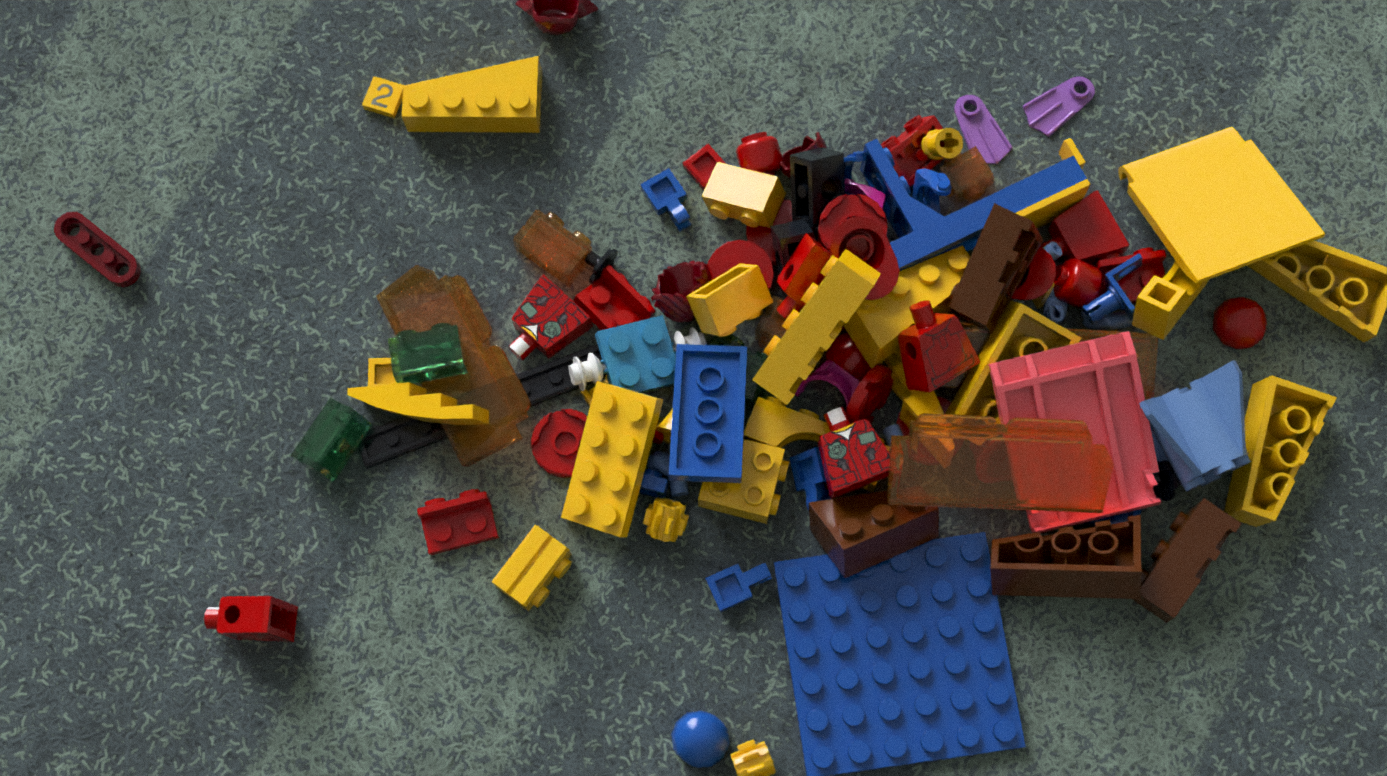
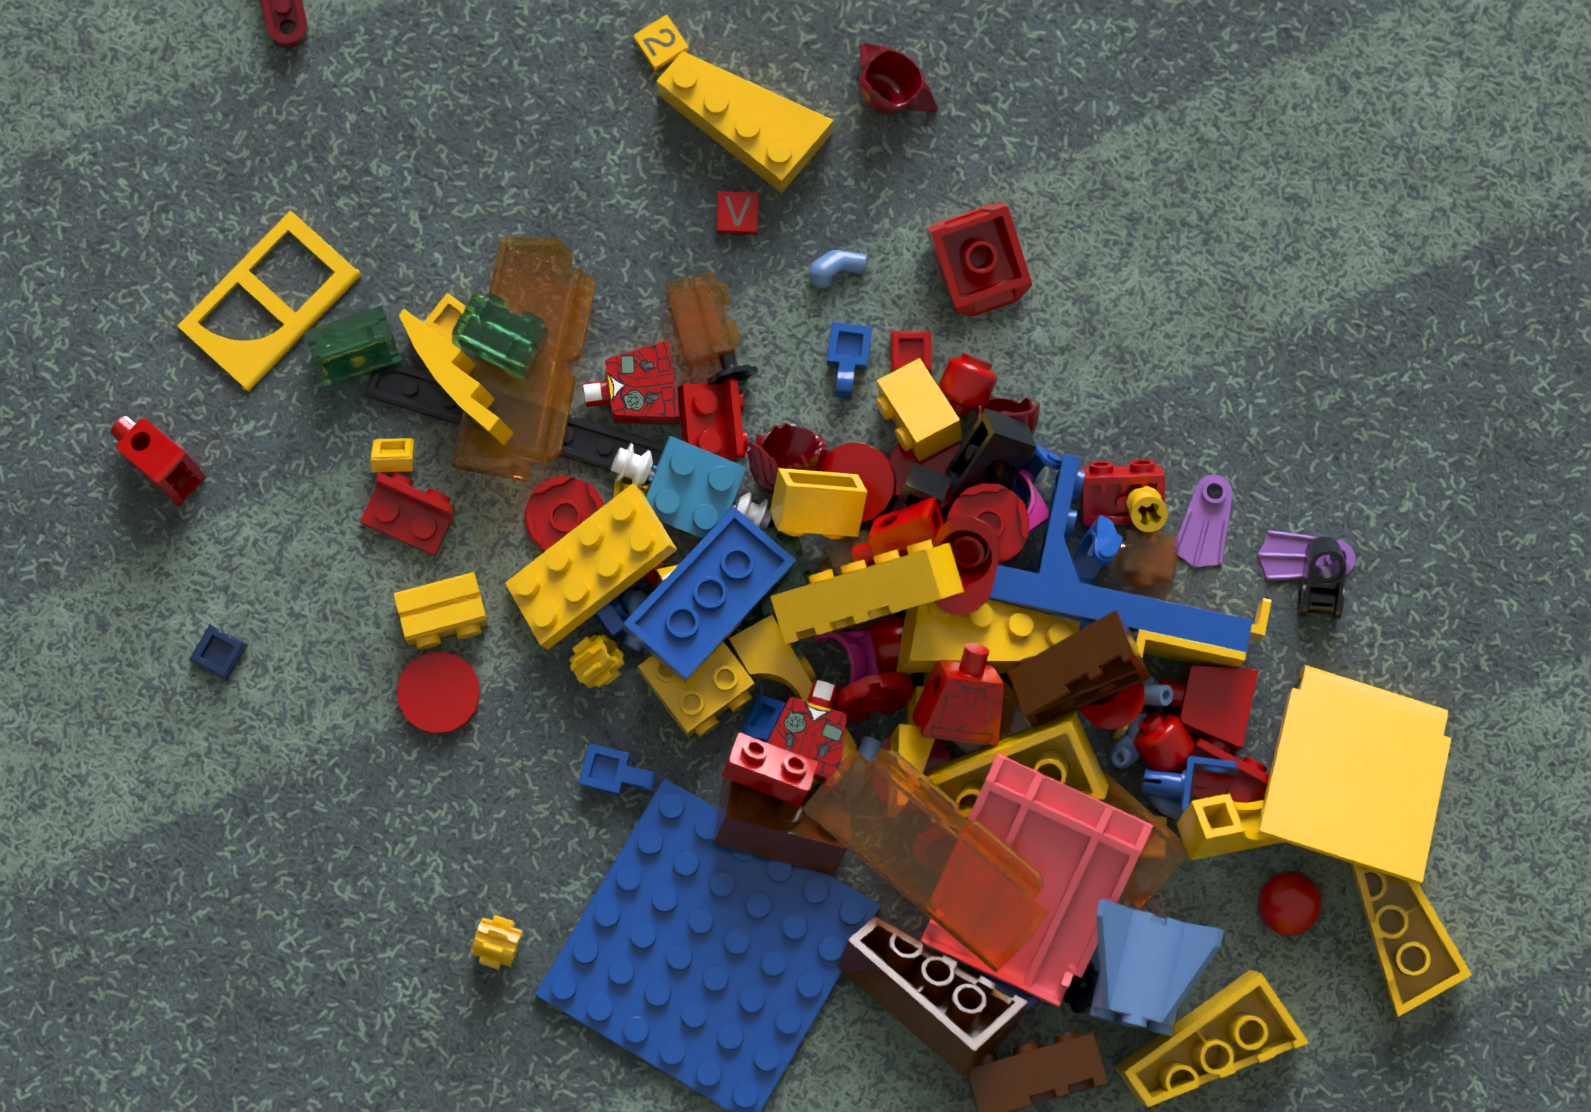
camera: 30 degrees right, 5 degrees up
(269, 502) = (253, 359): none -> yellow window
(399, 719) = (218, 652): none -> dark blue tile
(416, 491) = (392, 455): none -> yellow tile
(521, 164) = (737, 213): none -> red tile
(574, 626) = (438, 692): none -> red tile
(609, 149) = (834, 262): none -> medium blue arm
(700, 739) = (469, 884): blue hair -> none
(703, 74) = (980, 259): none -> red slope
(847, 494) = (769, 769): none -> red bracket
(1090, 111) = (1322, 587): none -> black piece

